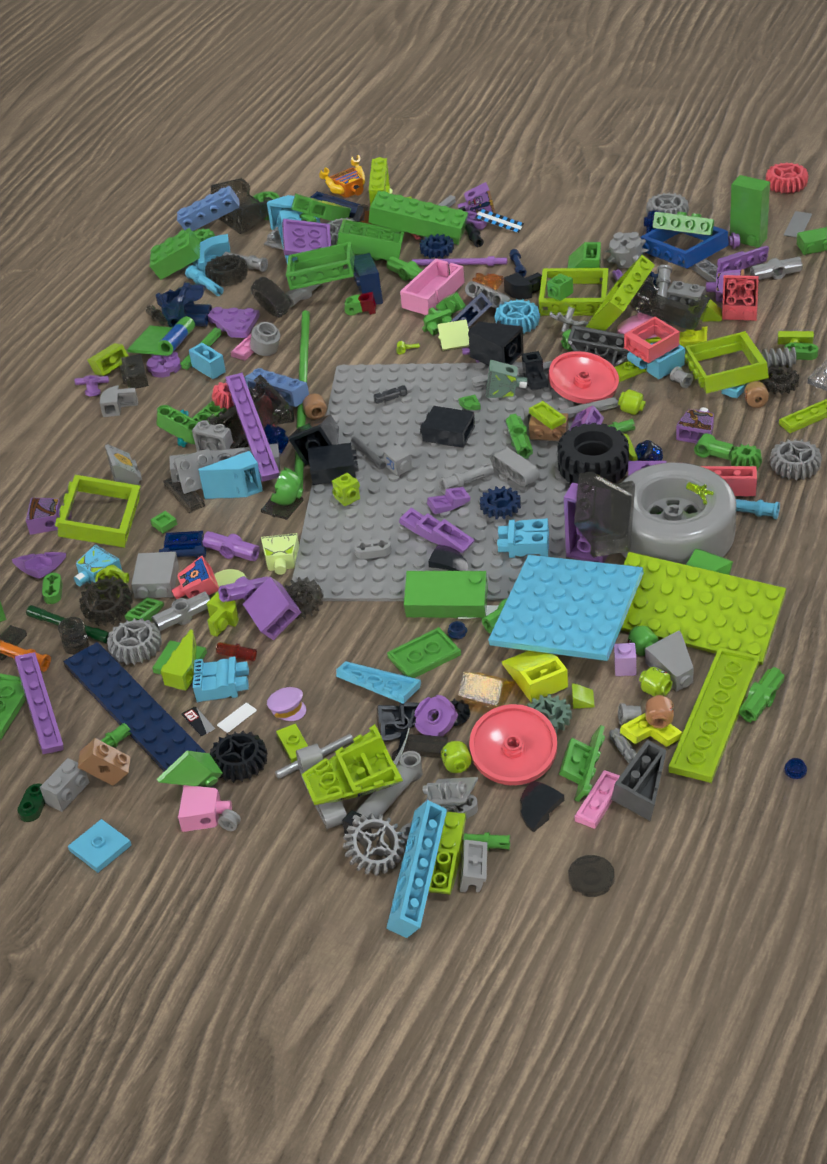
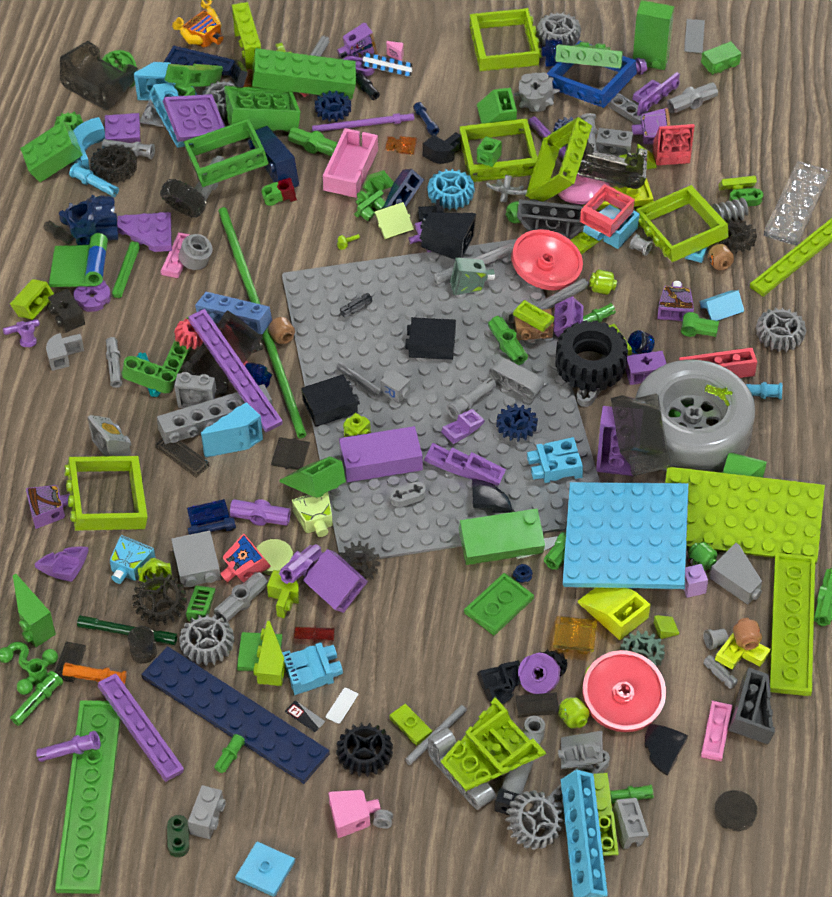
camera: 20 degrees left, 10 degrees up
(55, 588) = (95, 589): bright green beam -> none
(104, 762) = (240, 782): medium nougat brick -> none
(152, 426) = (113, 356): none -> light grey pin
(163, 522) = (177, 494): bright green plate -> none
(188, 466) = (189, 430): light grey hinge -> none
(192, 770) = (334, 778): bright green slope -> none
(207, 360) = (143, 287): medium azure brick -> none
(208, 209) = (65, 87): medium blue brick -> none
(248, 246) = (123, 127): none -> medium lavender plate
(287, 488) = (295, 436): bright green cylinder -> none
(287, 704) = (388, 682): lavender piece -> none
(290, 519) = (317, 477): none -> bright green slope
(314, 434) = (301, 370): black slope -> none
(359, 511) = (381, 454): none -> medium lavender brick
(382, 682) = (478, 645): medium azure wing -> none
(397, 753) = (516, 704): black sticker -> none
(470, 402) = (441, 304): bright green tile -> none
(495, 297) = (404, 163): light grey beam -> none
(510, 210) = (395, 50): none -> bright pink slope
(533, 370) = (496, 258): black brick -> none
(580, 762) = (690, 696): bright green bracket -> none
(614, 196) = (501, 19): none -> lime window
(655, 682) = (730, 600): lime head -> none
(745, 433) = (723, 305): none -> medium azure panel
(746, 456) = (734, 335): bright green gear -> none

